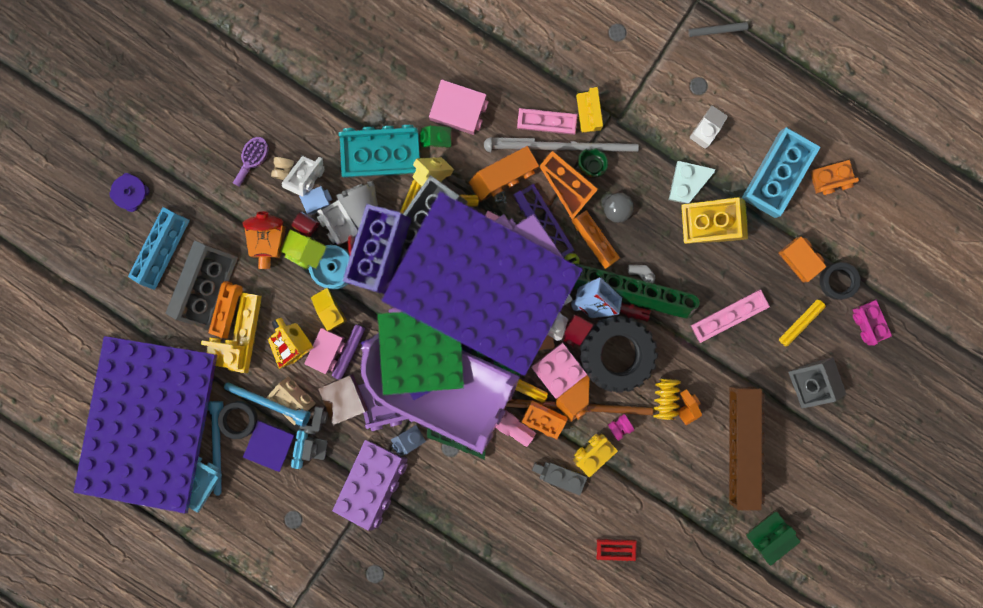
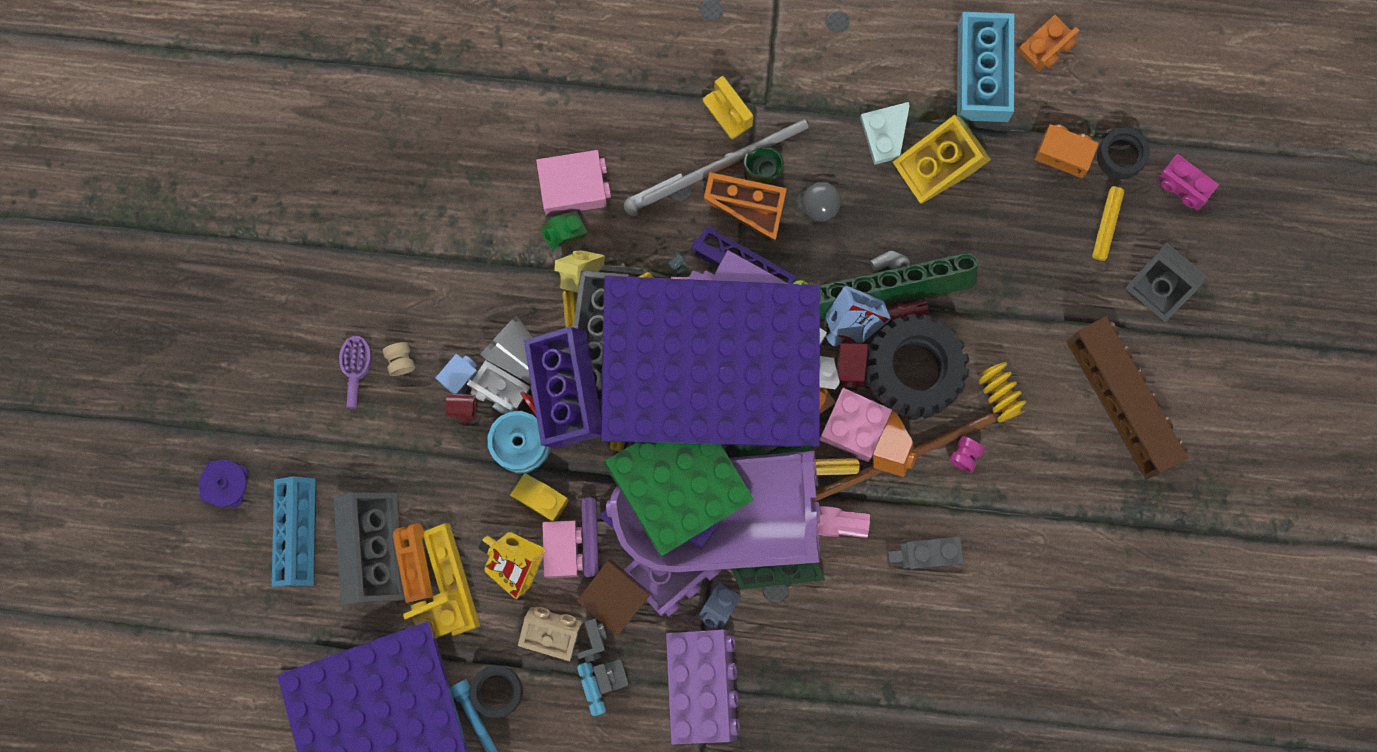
camera: 25 degrees left, 10 degrees down
(262, 222) = (406, 431): red dish -> none
(265, 245) = (421, 457): orange torso -> none
(269, 446) = (551, 703): dark purple tile -> none
(300, 417) = (572, 643): dark azure piece -> none
(302, 250) = (473, 436): lime brick -> none
(303, 175) = (429, 352): white bracket -> none
(379, 151) = (504, 279): teal bracket -> none
(504, 174) = (666, 230): orange wedge -> none
(544, 420) = (871, 492): orange bracket -> none
(547, 121) = (684, 147): bright pink tile -> none
(595, 239) = (814, 251): orange plate -> none
(595, 454) = (954, 504): yellow bracket -> none
(599, 549) = (1064, 597): red tile -> none
(690, 411) = (1038, 388): orange bracket -> none
(708, 127) = (874, 60): white slope -> none
(730, 316) = (1020, 259): bright pink tile -> none
(773, 538) = (1221, 492): dark green bracket -> none

